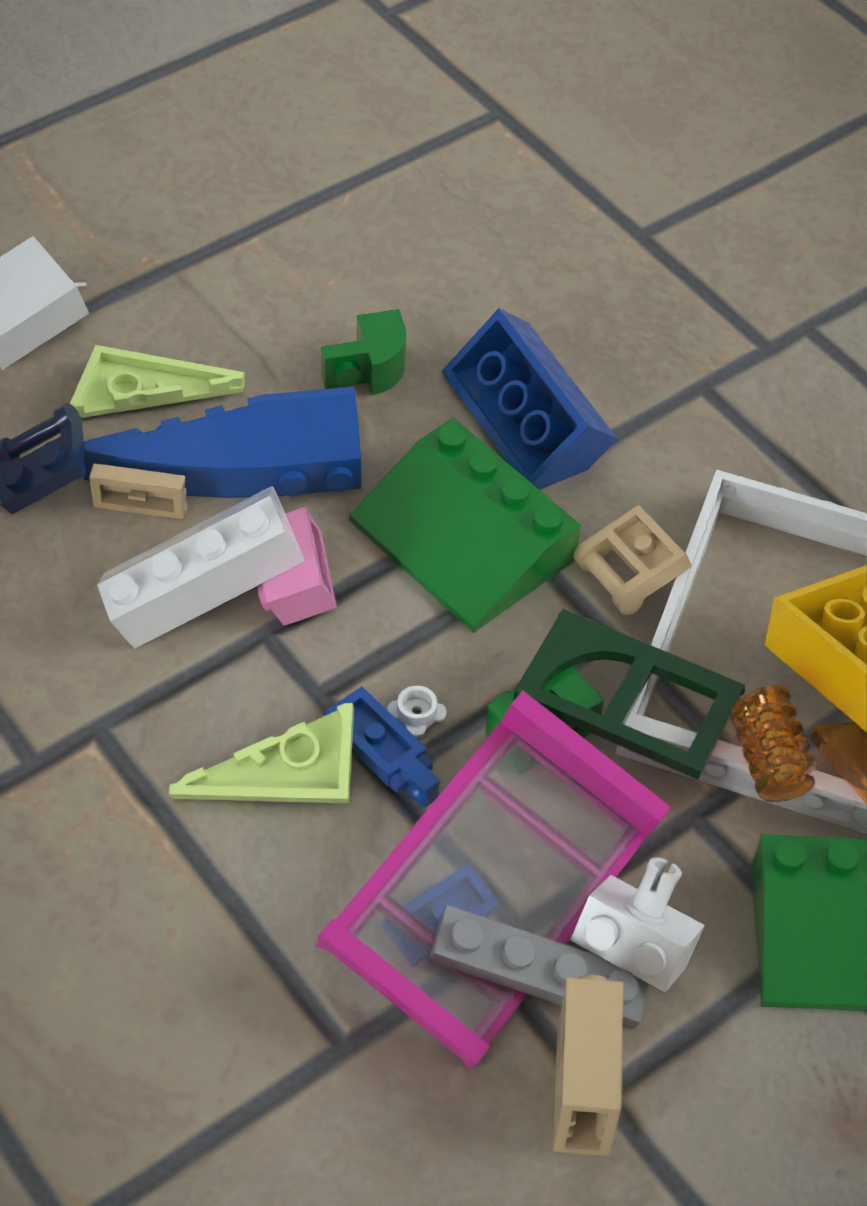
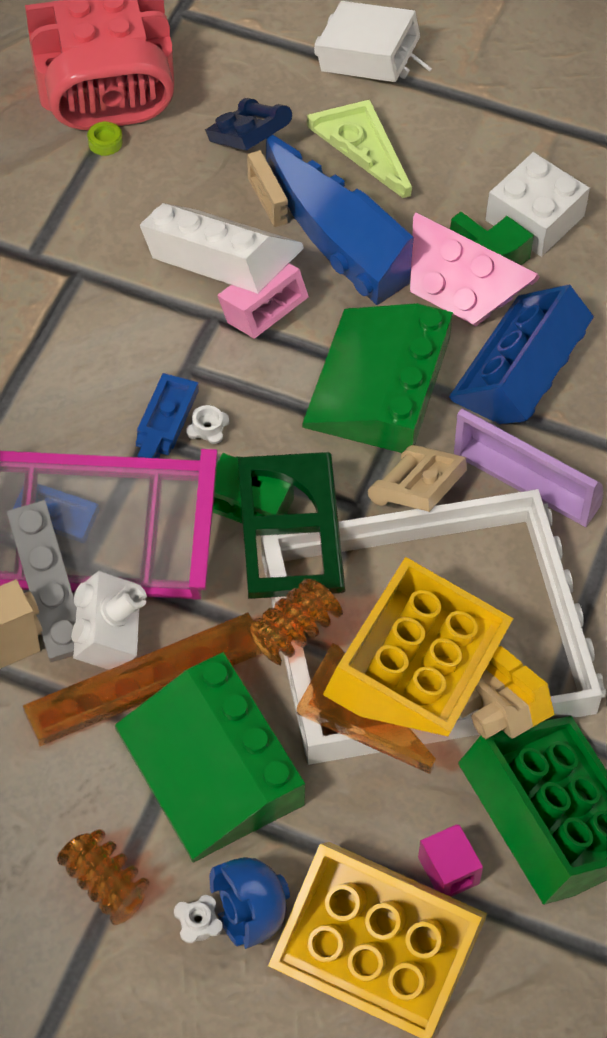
camera: 60 degrees right, 5 degrees up
(299, 766) = (112, 381): yellowish green wing -> none
(347, 282) = (539, 200): none -> white brick
(401, 388) = (462, 273): none -> bright pink wing
(676, 467) = (527, 468): none -> lavender slope
(725, 945) = (135, 680): none -> clear orange plate

